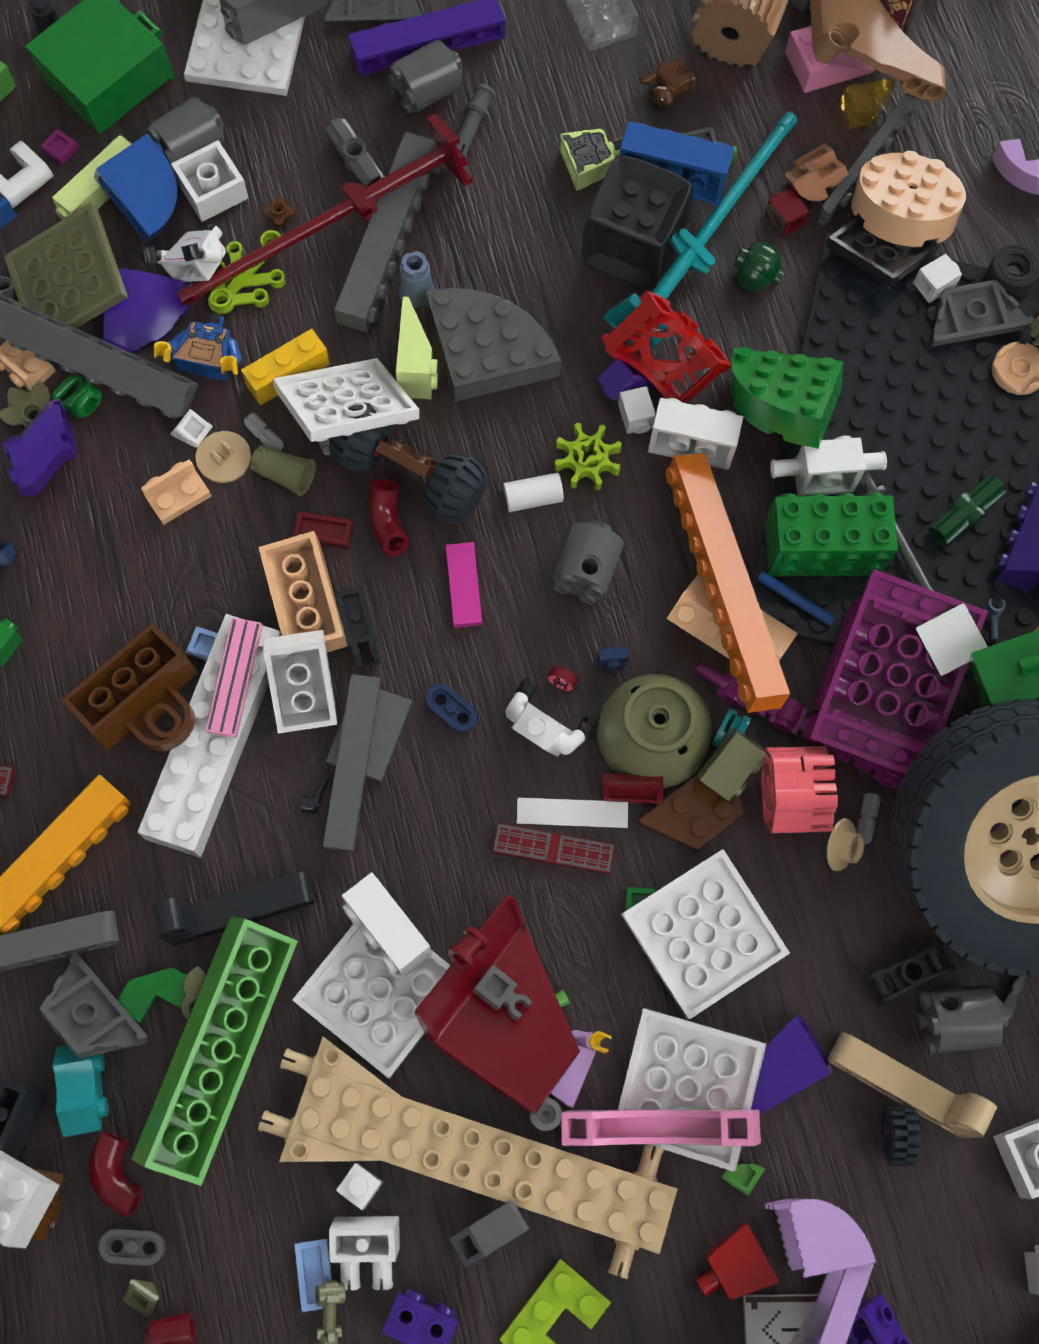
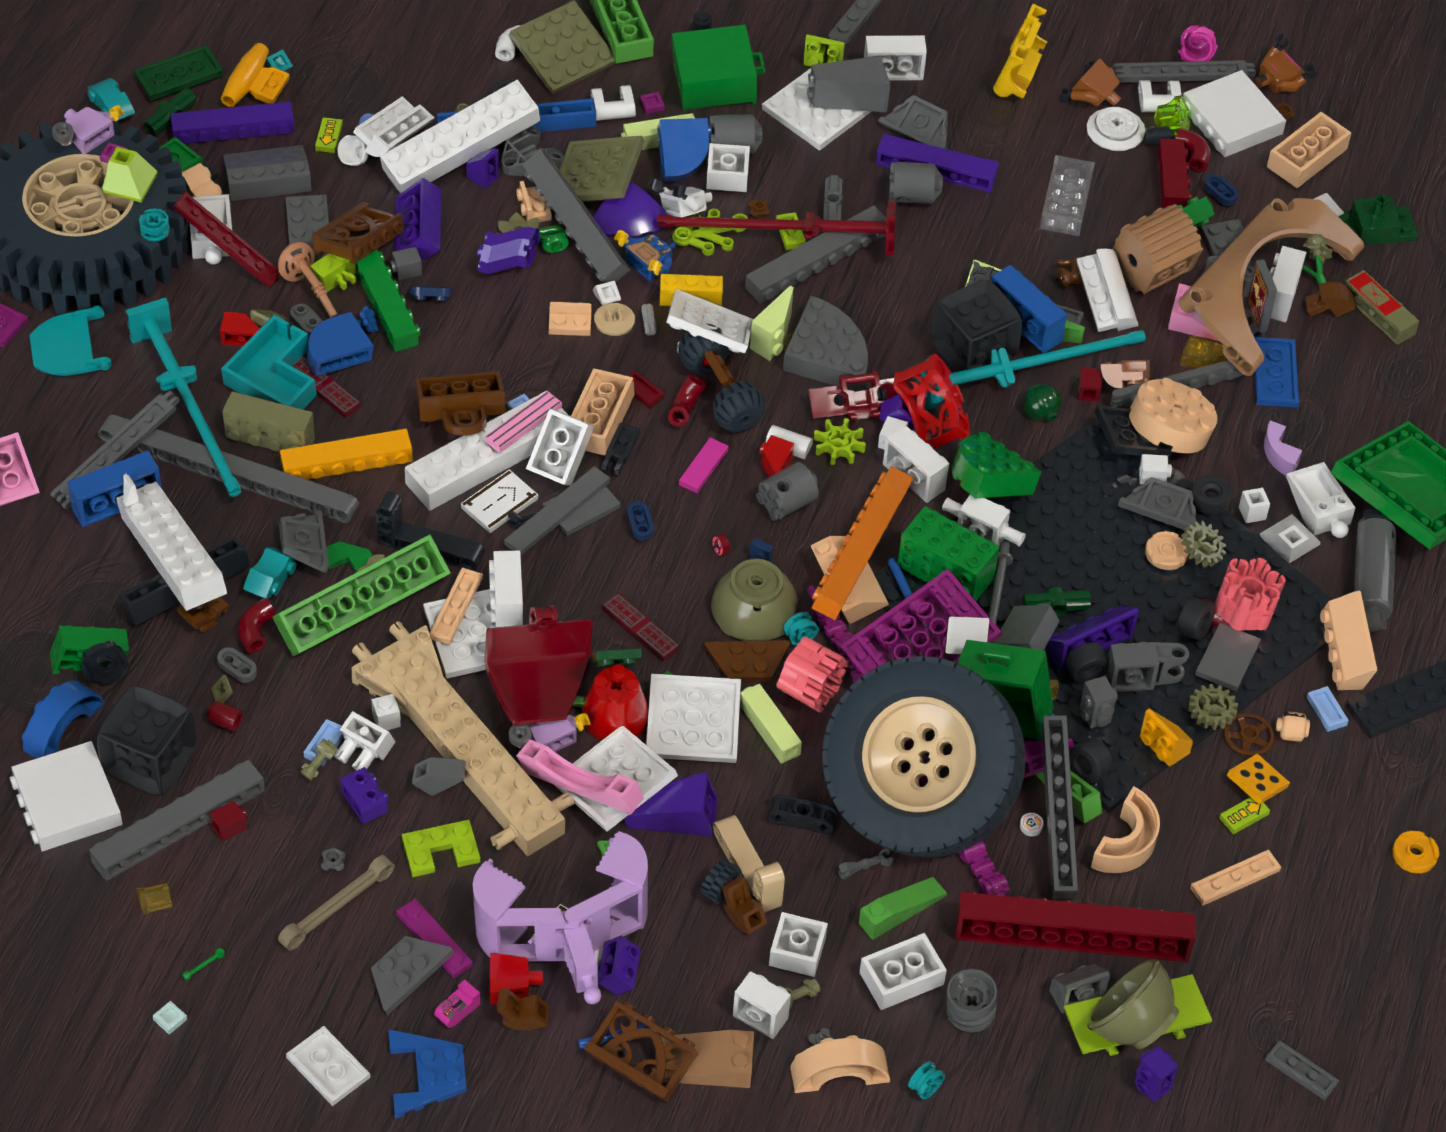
camera: 35 degrees right, 20 degrees down
(273, 791) = (498, 499): none -> white tile
(284, 469) = (645, 343): olive plant -> none
(334, 979) = (456, 606): none -> light nougat tile
(345, 228) = (791, 238): none -> lime plate
(415, 279) = (810, 285): sand blue plant -> none
(475, 113) = (932, 221): dark grey pin -> none
(498, 989) = (545, 663): dark grey plate -> none
(537, 524) = (776, 454): none -> red slope
(541, 727) = (686, 561): white torso -> none
(570, 394) = (857, 404): none -> dark red piece
(572, 812) = (668, 618): white sticker -> none
(578, 929) = (607, 658): none -> dark green plate
(591, 992) = (615, 702): none -> red cone
(633, 788) = (714, 621): dark red tile -> none
(721, 87) = (1107, 291): none -> white brick
(732, 764) = (781, 636): olive brick -> none
(736, 1266) = (567, 883): red torso -> none
(788, 877) = (770, 723): none -> yellowish green brick
(844, 845) = (810, 722): tan piece -> none
(948, 1150) = (741, 908): none -> reddish brown brick
(961, 1019) = (810, 848): dark grey cylinder -> none
(966, 91) = (1277, 376): none -> blue tile
(978, 573) = (1029, 627): none -> dark grey brick

